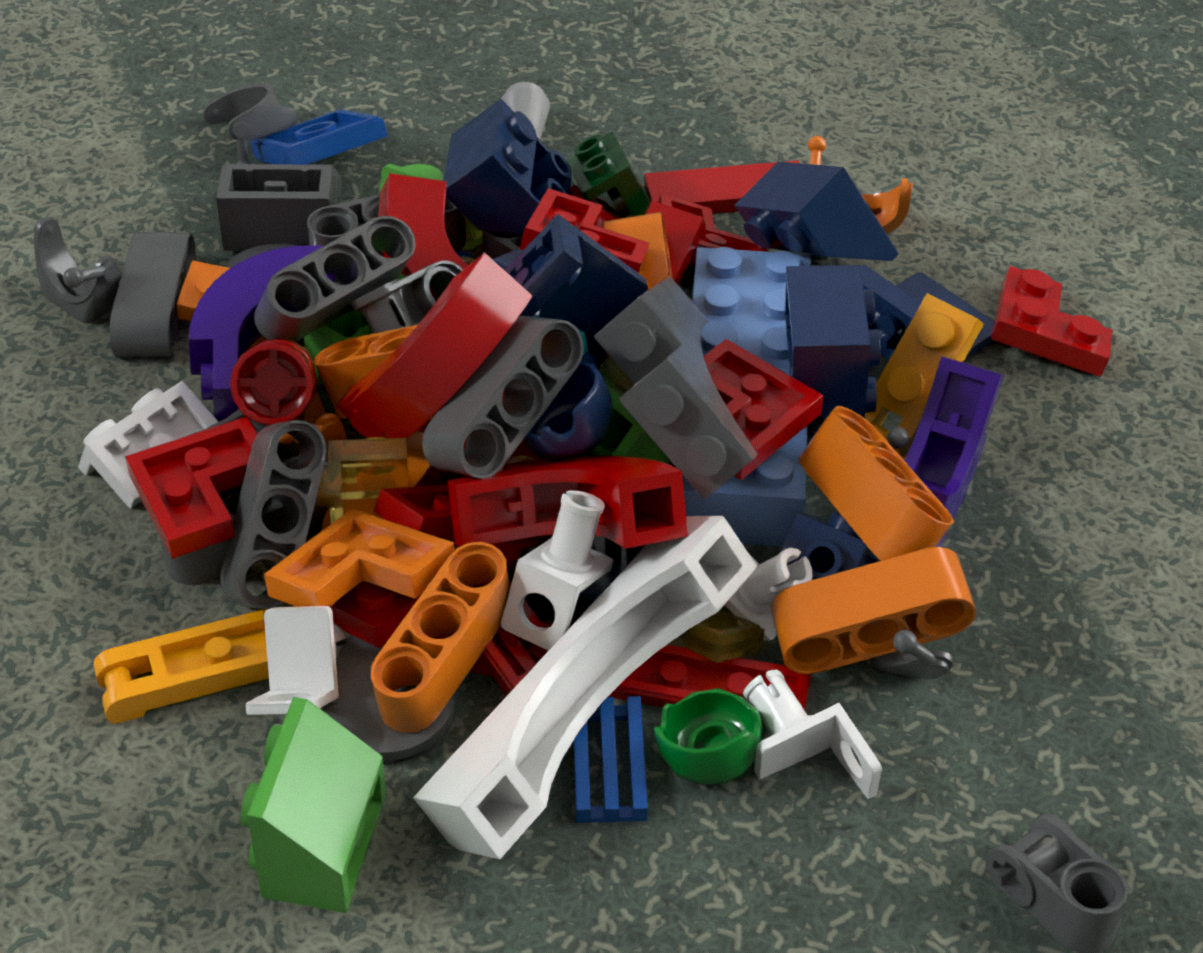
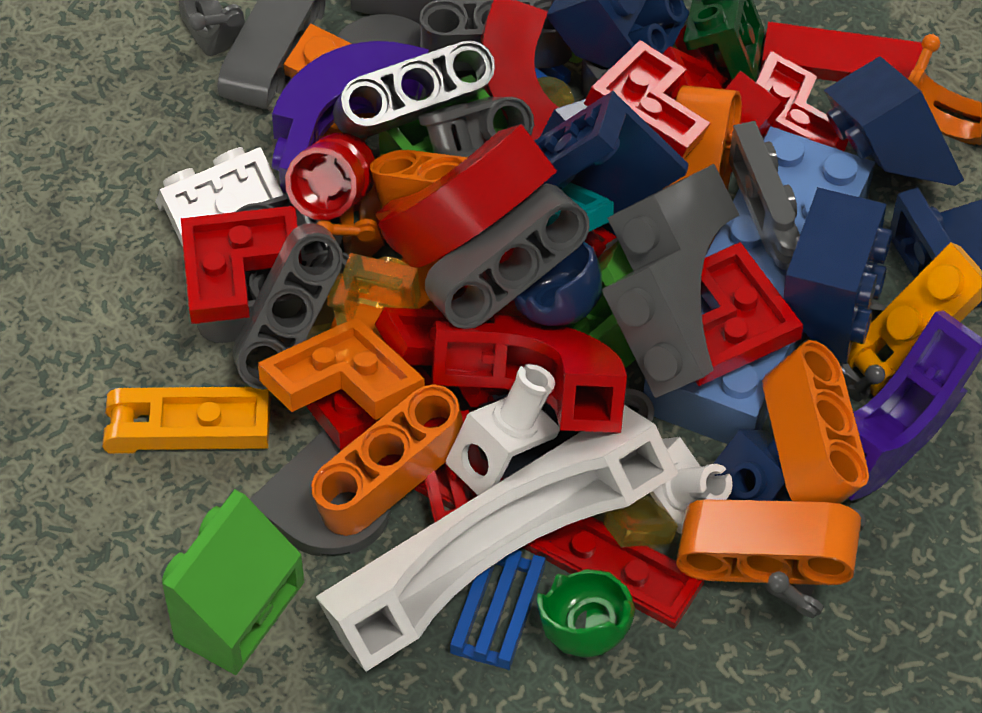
camera: 20 degrees right, 10 degrees up
(299, 658) = (268, 448): white bracket -> none
(729, 295) = (768, 200): none -> dark grey hinge
(801, 736) = (662, 634): white bracket -> none

